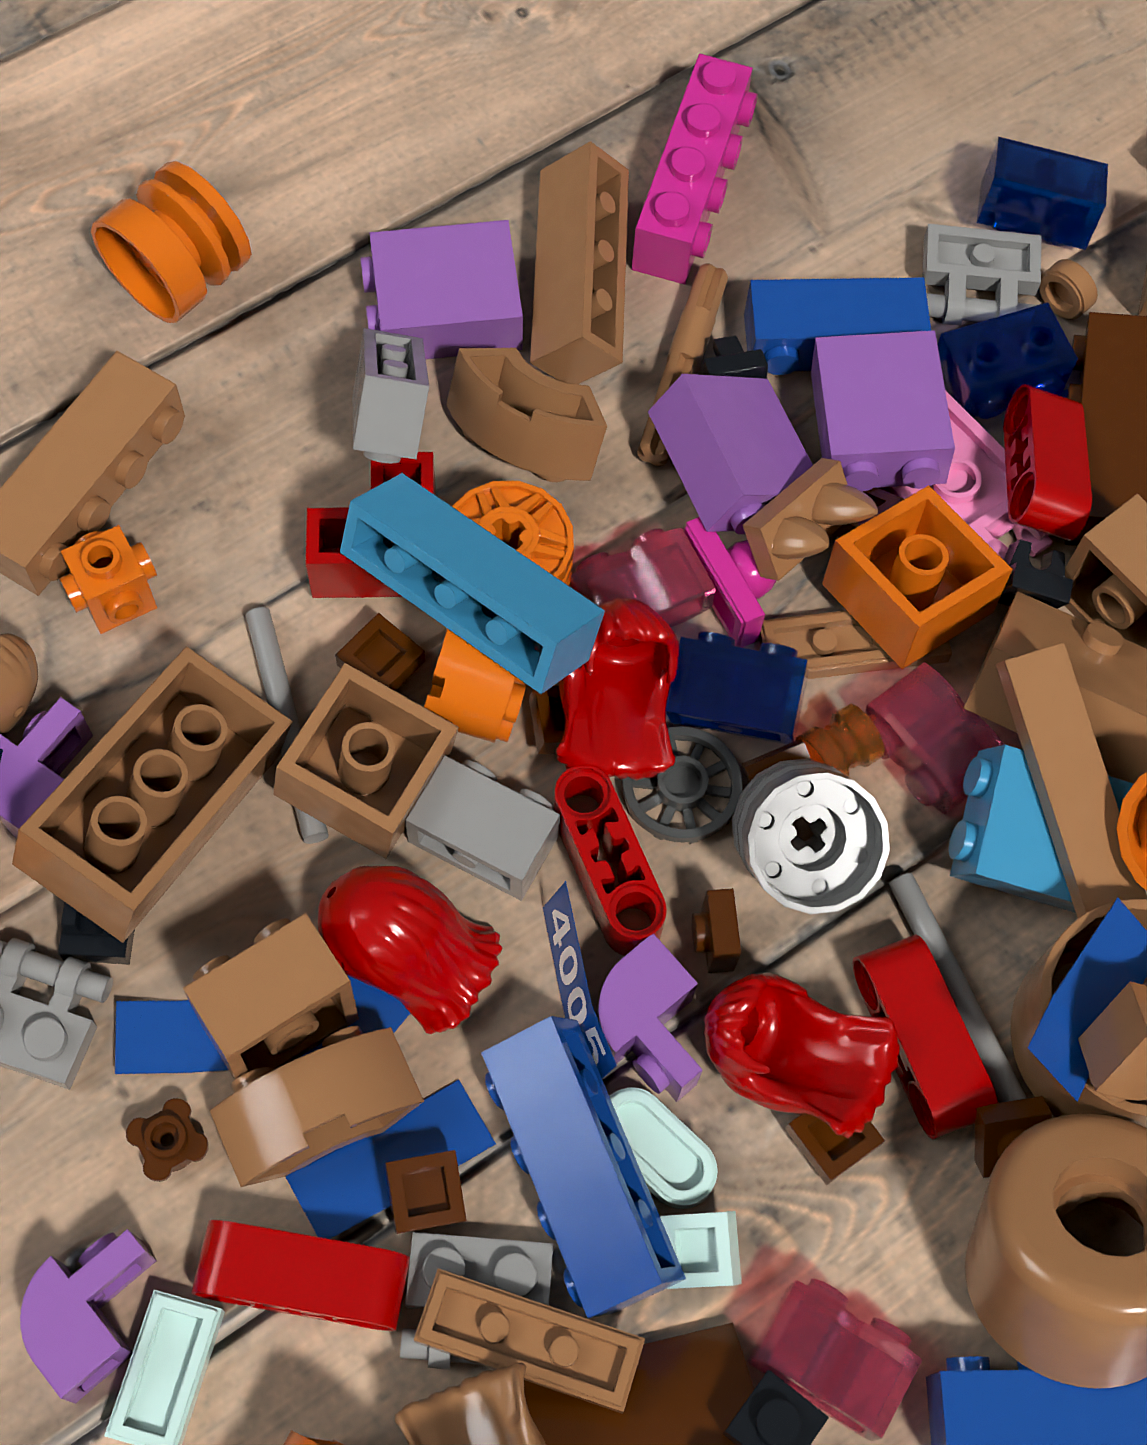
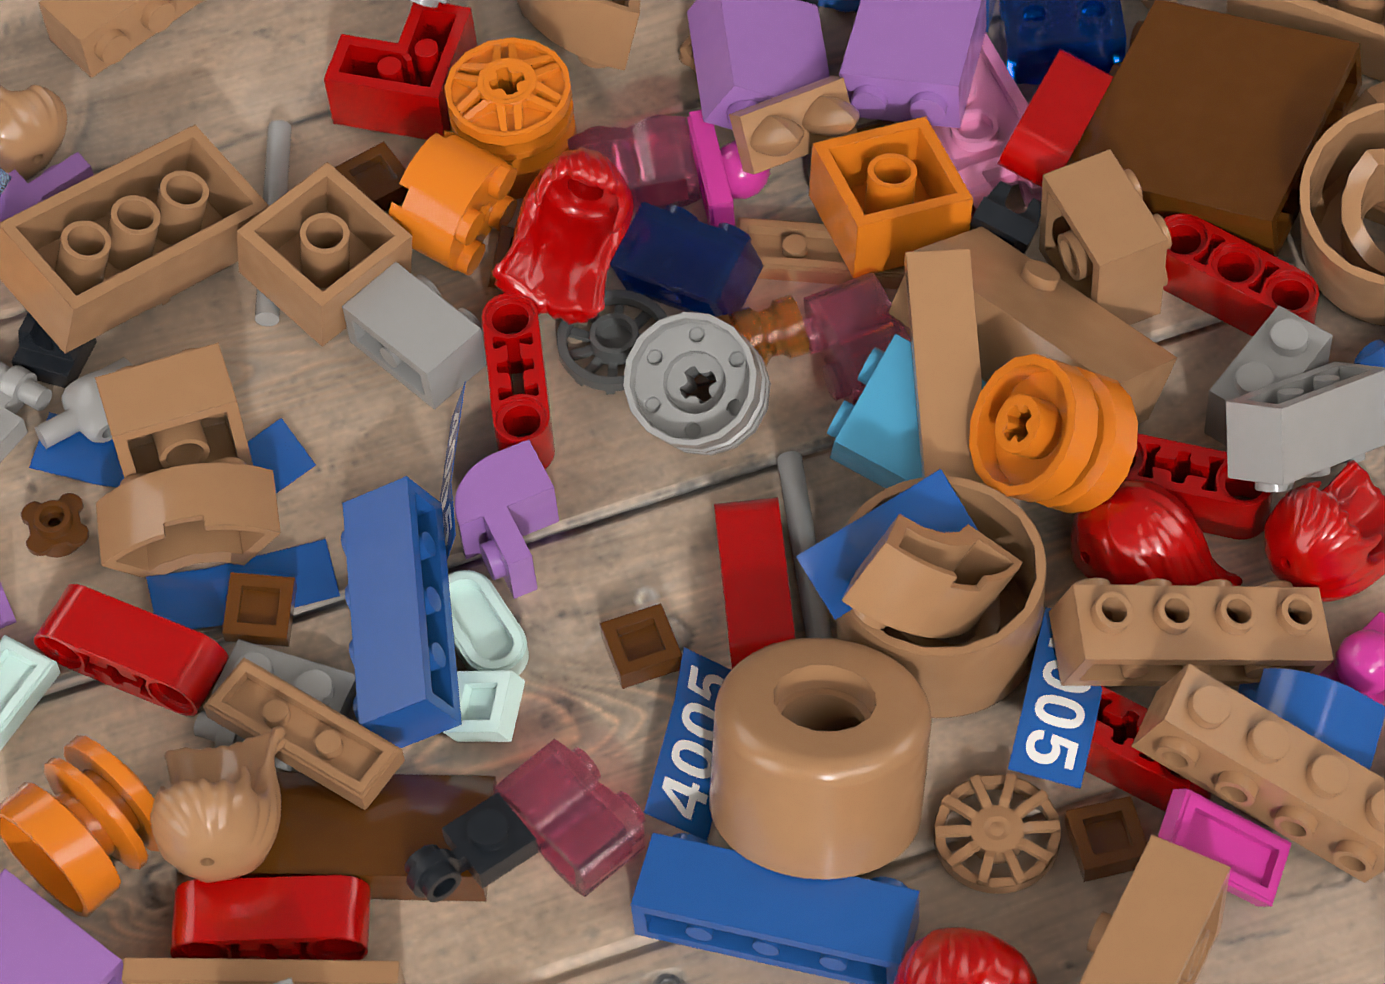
camera: 25 degrees right, 10 degrees down
(109, 578) = (154, 70): orange brick -> none
(159, 985) = (82, 411): none -> light grey piece
(408, 943) = (314, 408): red piece -> none
(471, 582) = (450, 104): dark azure brick -> none
(717, 931) = (596, 459): reddish brown plate -> none
(799, 1054) = (619, 558): red piece -> none
(928, 1237) = (683, 769): none -> blue sticker

